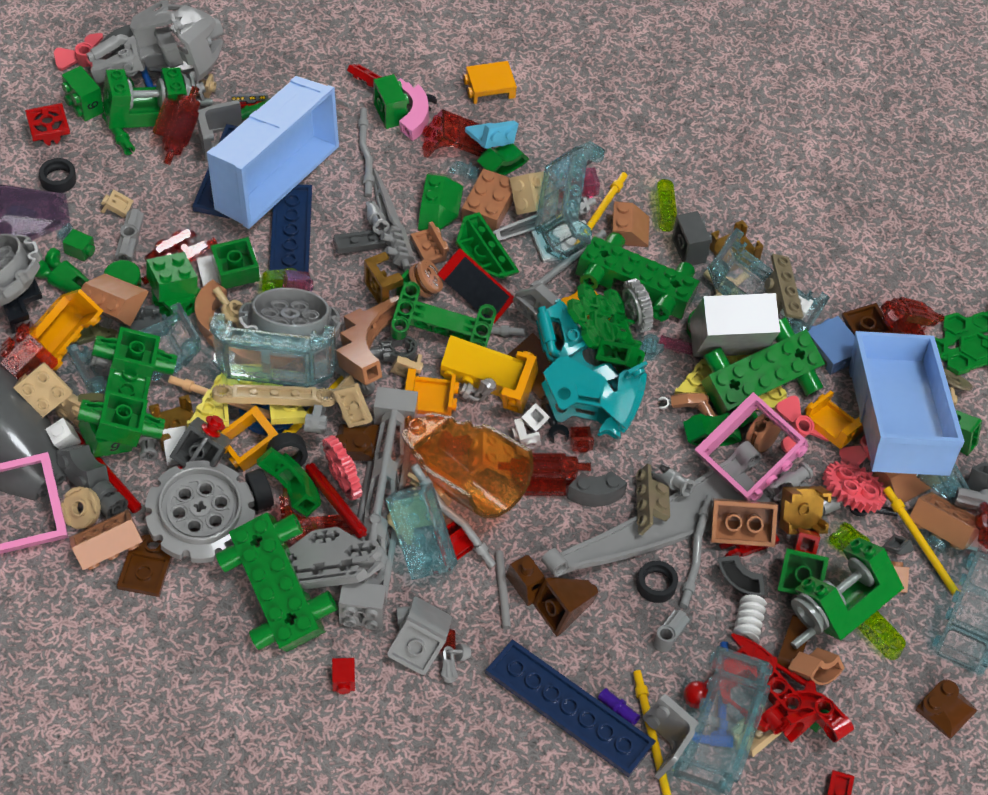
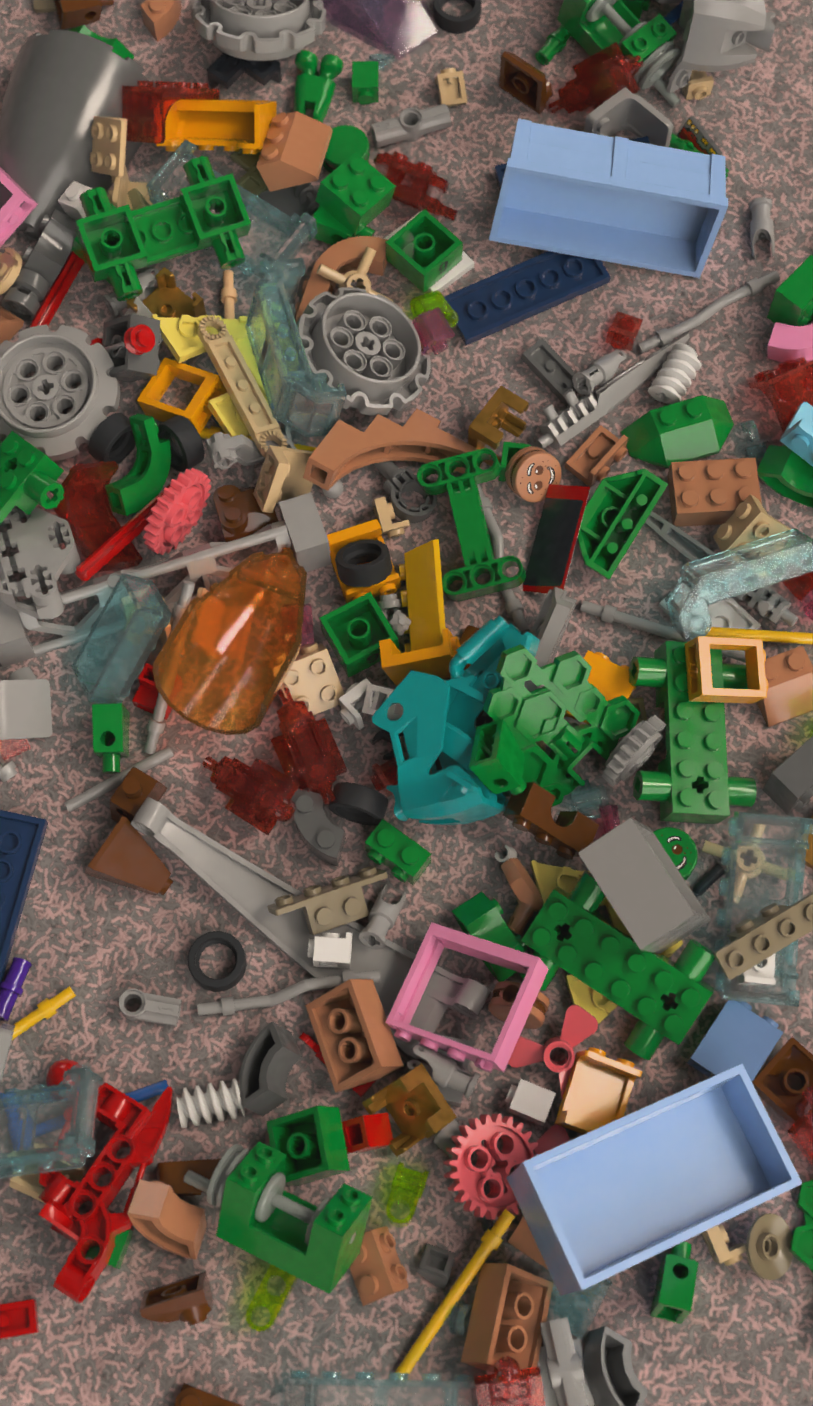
camera: 70 degrees right, 15 degrees up
(145, 163) = (524, 82): none -> reddish brown slope
(352, 197) = (623, 331): none -> clear red bracket
(400, 183) = (675, 375): none -> white piece
(442, 394) = (363, 574): none -> black tyre
(474, 575) = (108, 723): none -> green torso
(482, 407) = (356, 632): none -> green brick
(560, 508) = (259, 794): none -> clear red piece
(599, 455) = (358, 803): none -> black tyre
(620, 248) = (700, 674): none -> light orange window
(635, 454) = (397, 852): none -> green brick
(664, 365) = (532, 814): none -> reddish brown arch
(684, 512) = (331, 950): none -> white brick
(822, 454) = (530, 1101): none -> white brick
(868, 681) = (180, 1300): none -> reddish brown slope

